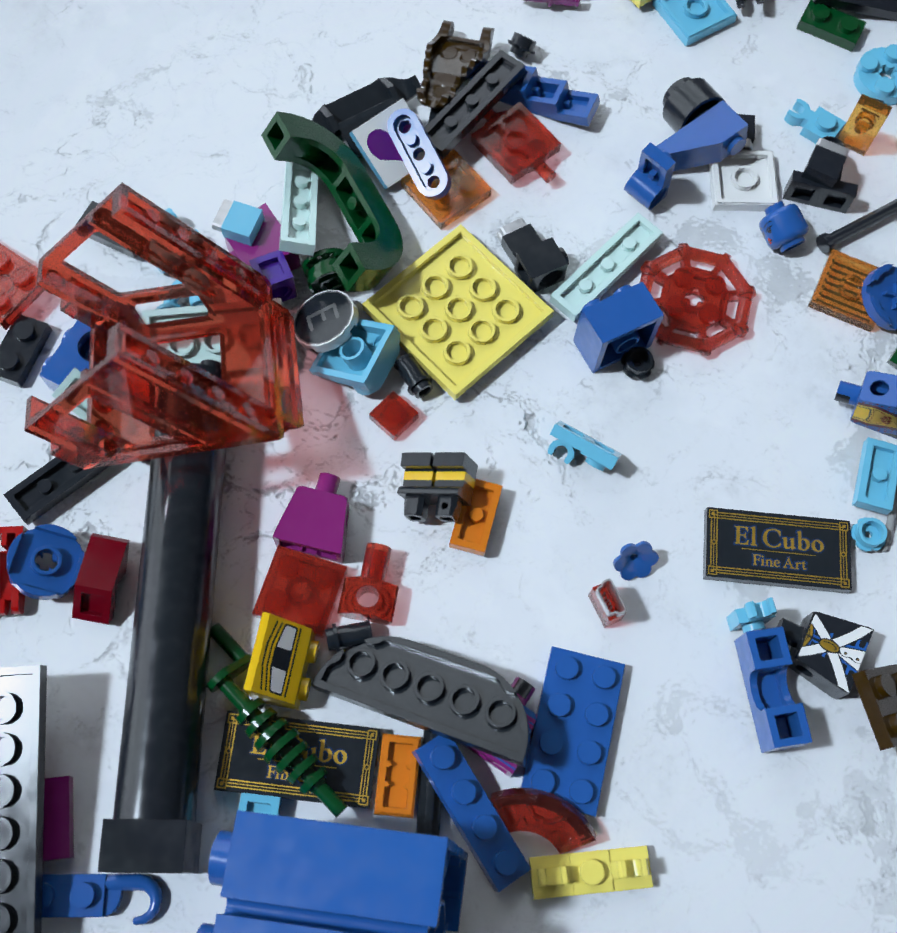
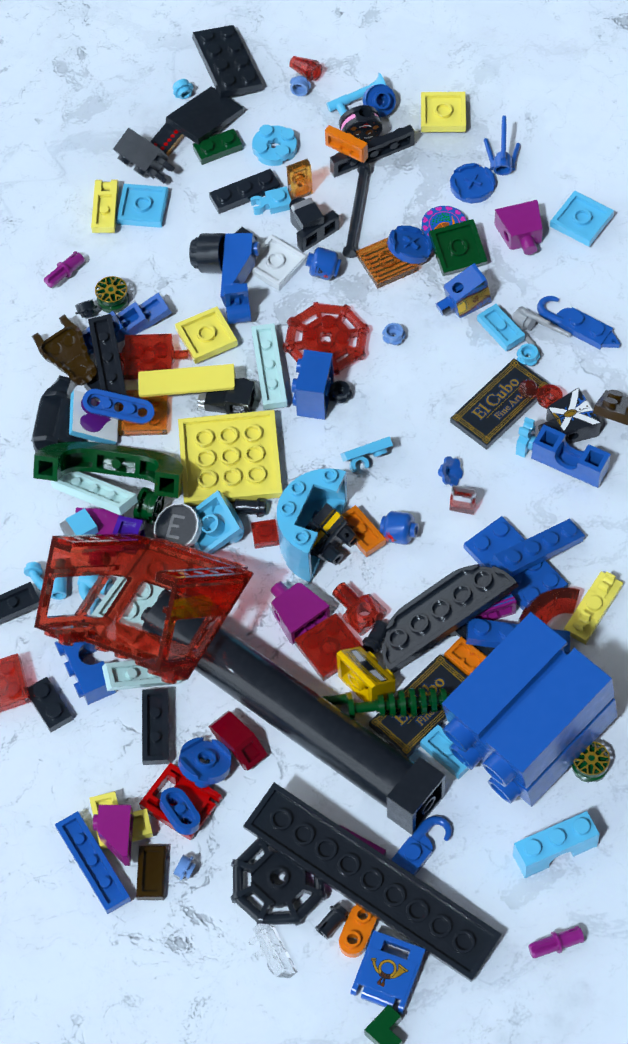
camera: 45 degrees left, 10 degrees down
(434, 425) = (296, 510): none -> medium azure cylinder
(511, 555) = (398, 527): none -> blue head
(512, 198) = (186, 380): none -> light yellow panel
(560, 57) = (112, 294): none -> dark green wheel
(590, 177) = (206, 334): none -> light yellow plate
(611, 745) = (538, 548): none -> blue plate
(765, 357) = (393, 329): none -> medium blue plate
(796, 84) = (241, 191): none -> black plate
(822, 571) = (545, 395): none -> clear red plate

